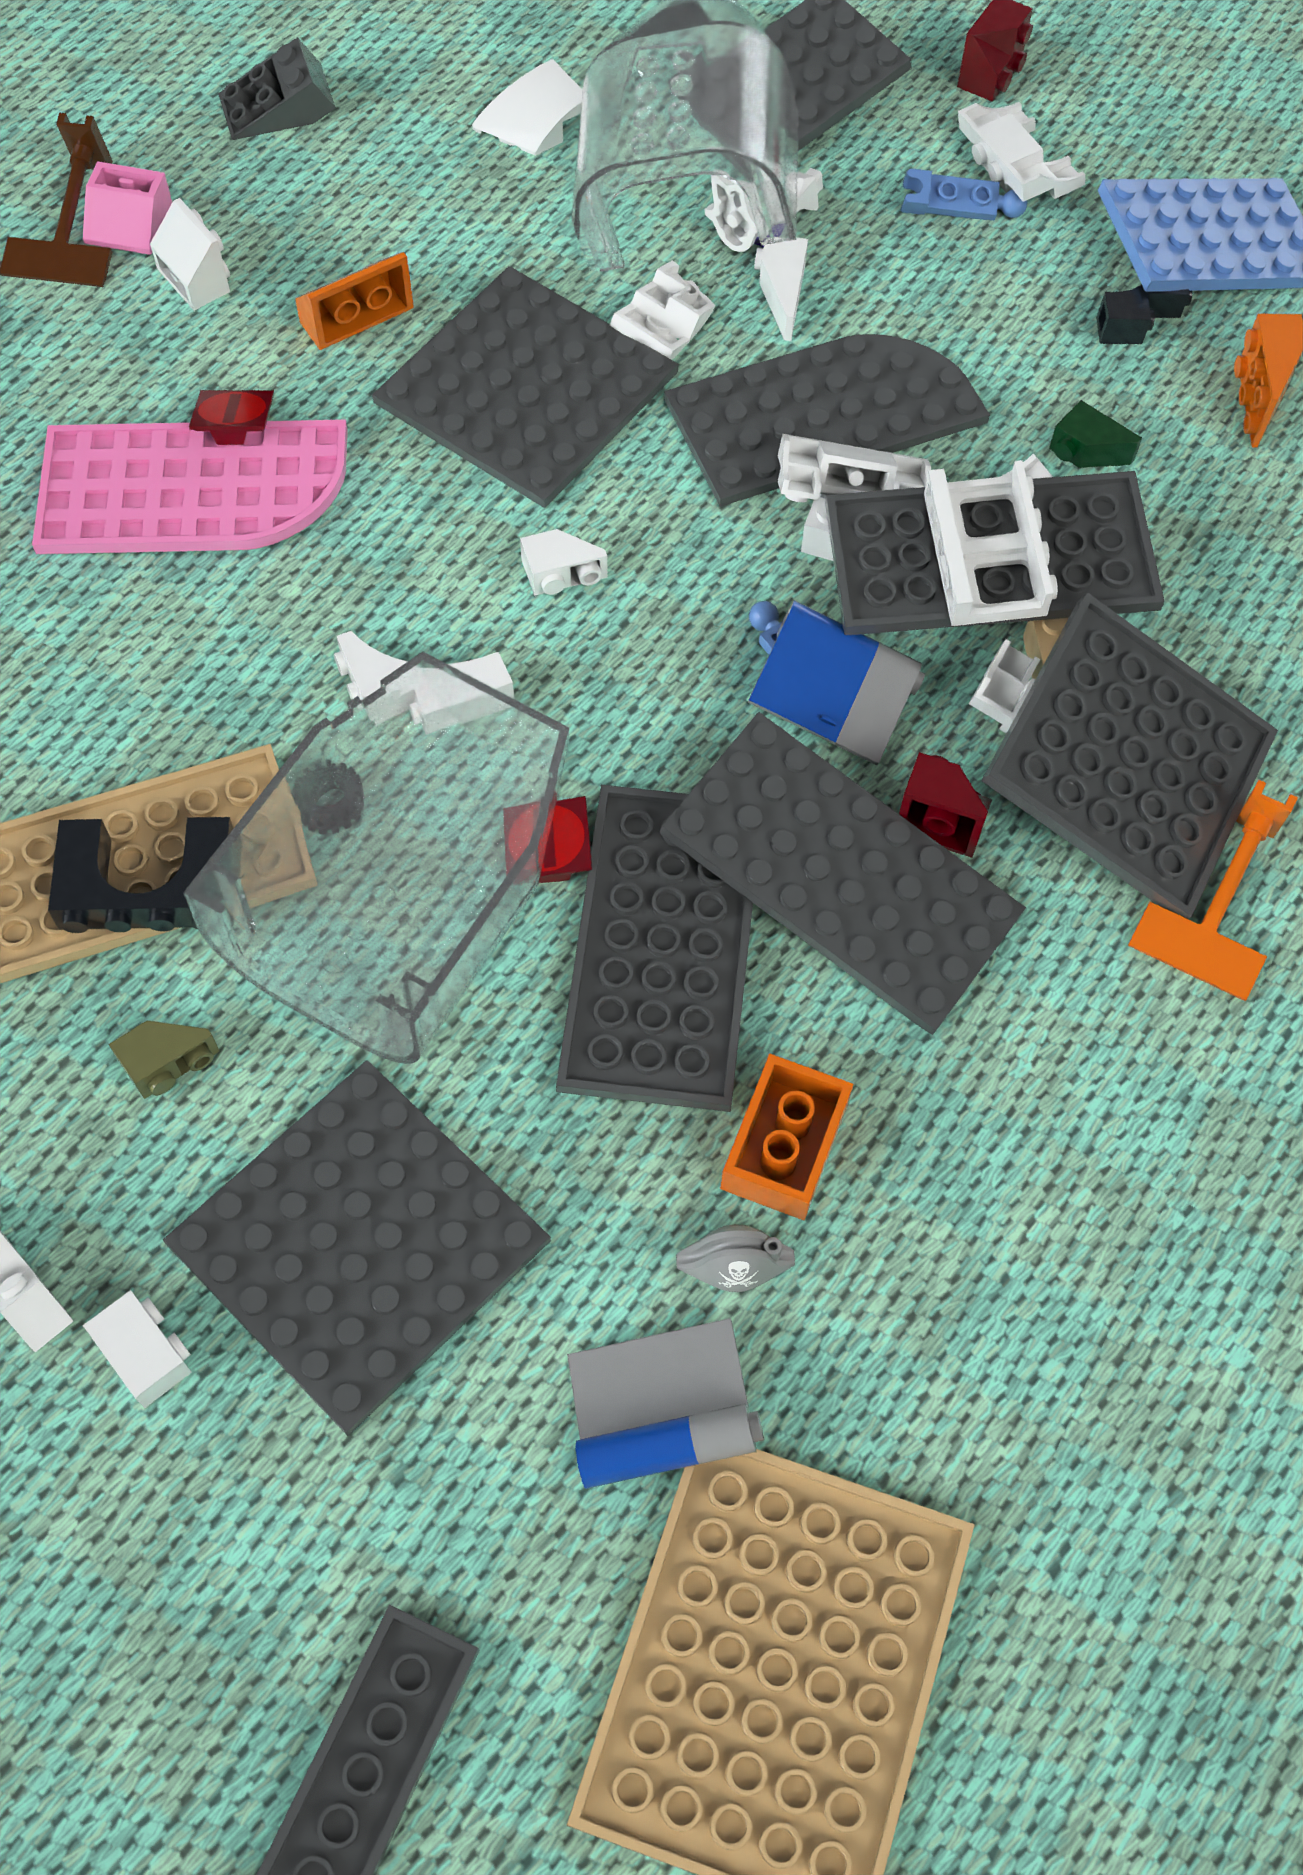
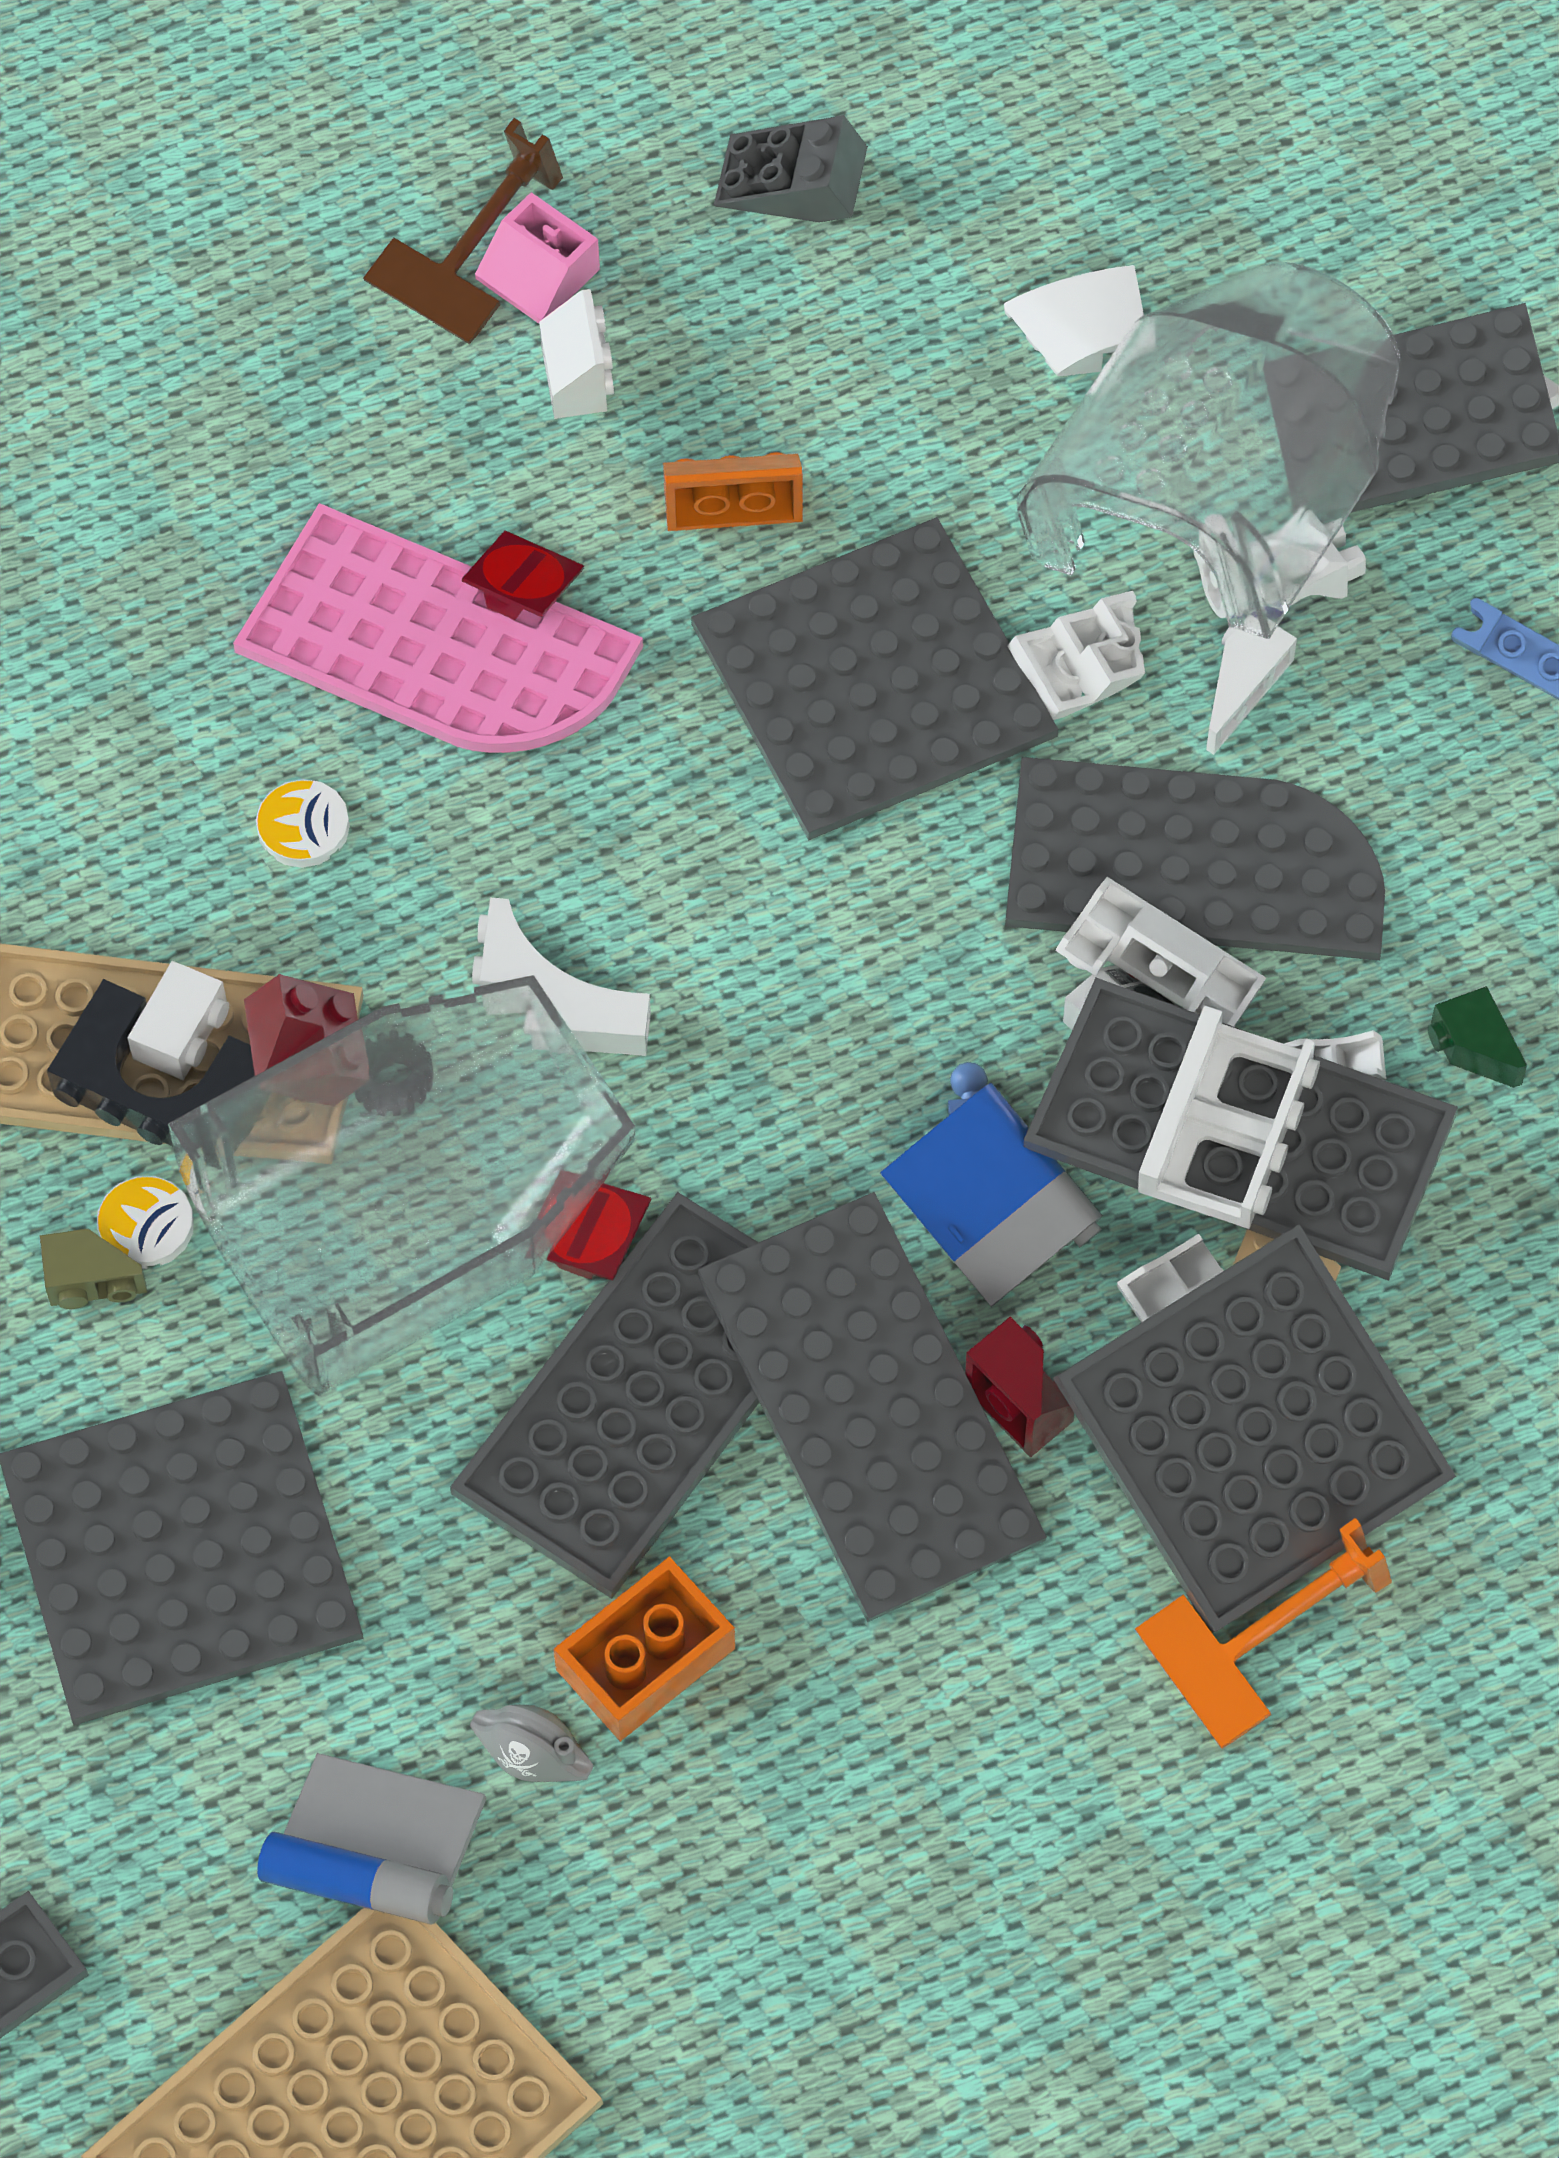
camera: 30 degrees right, 0 degrees up
(137, 828) = (178, 1021): none -> white brick
(155, 650) = (302, 823): none -> tile
(190, 993) = (146, 1220): none -> tile
(232, 779) = (293, 1015): none -> dark red slope
(561, 561) = (781, 915): white slope -> none

